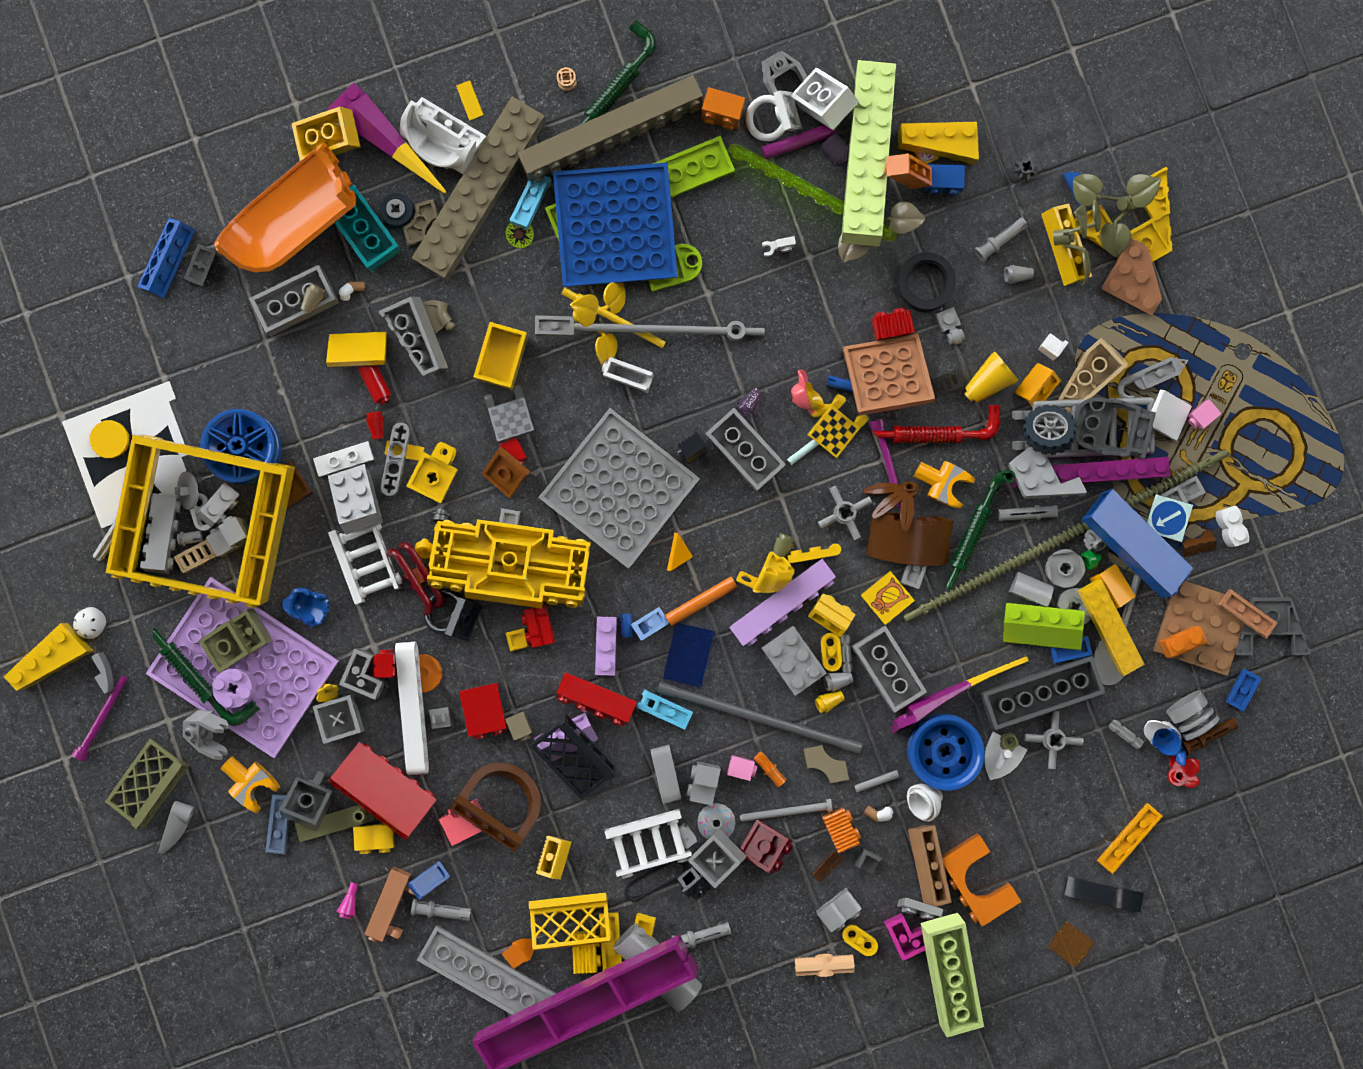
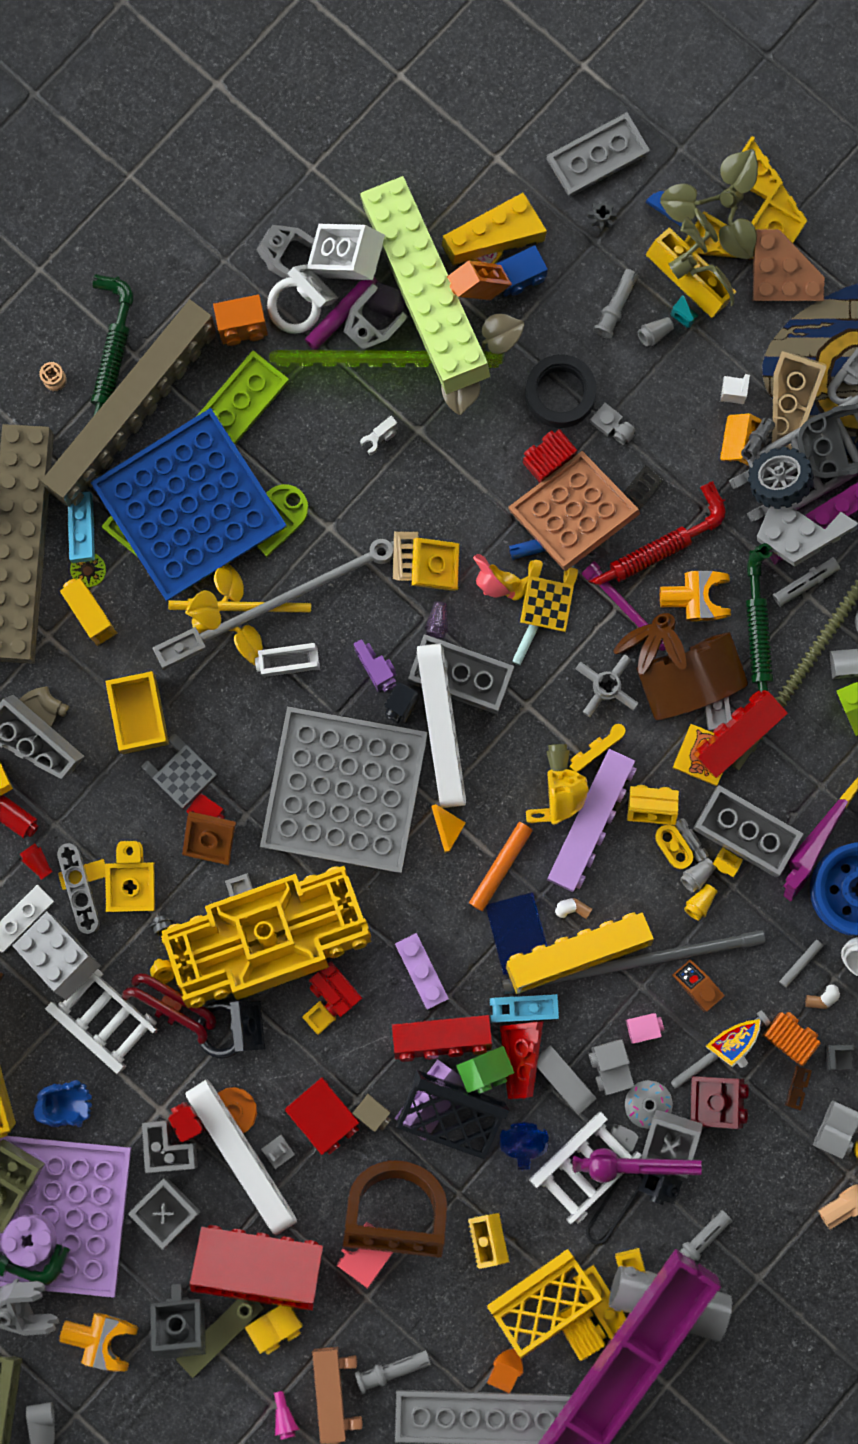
camera: 20 degrees left, 5 degrees down
(277, 828) = (158, 1374): sand blue tile -> none
(327, 693) = (136, 1190): yellow plant -> none
(428, 880) = (361, 1342): tile -> none
(503, 264) = (87, 611): none -> yellow window
(614, 738) = (485, 1069): none -> bright green brick
(614, 803) = (524, 1143): none -> clear blue tile
(626, 627) = (432, 937): blue pin -> none
(644, 741) = (522, 1049): none -> red wing
(650, 623) = (457, 920): light blue slope -> none
(662, 849) = (605, 1165): none -> magenta piece
(688, 416) = (379, 670): none -> medium lavender plate
(711, 479) = (441, 725): none -> white beam
(724, 691) = (579, 953): none -> yellow brick
(737, 655) = (572, 905): none -> arm
(756, 346) = (398, 555): none -> tan slope
(769, 360) = (435, 564): none -> yellow tile
(770, 769) = (676, 1013): orange axle -> none
(793, 660) = (638, 878): light grey brick -> none
(795, 758) = (698, 985): none -> dark orange slope
(800, 812) = (735, 1042): none -> shield
(811, 169) = (357, 321): none -> light grey piece
(834, 769) = (746, 975): dark tan tile -> none
(863, 683) = (727, 862): none -> yellow plate
(920, 597) = (740, 733): none -> red brick
(990, 379) = (686, 458): yellow cone -> none
(1045, 271) = (683, 313): none -> teal slope
(1046, 121) = (598, 154): none -> light grey plate
(1049, 392) = (758, 439): none -> dark grey pin

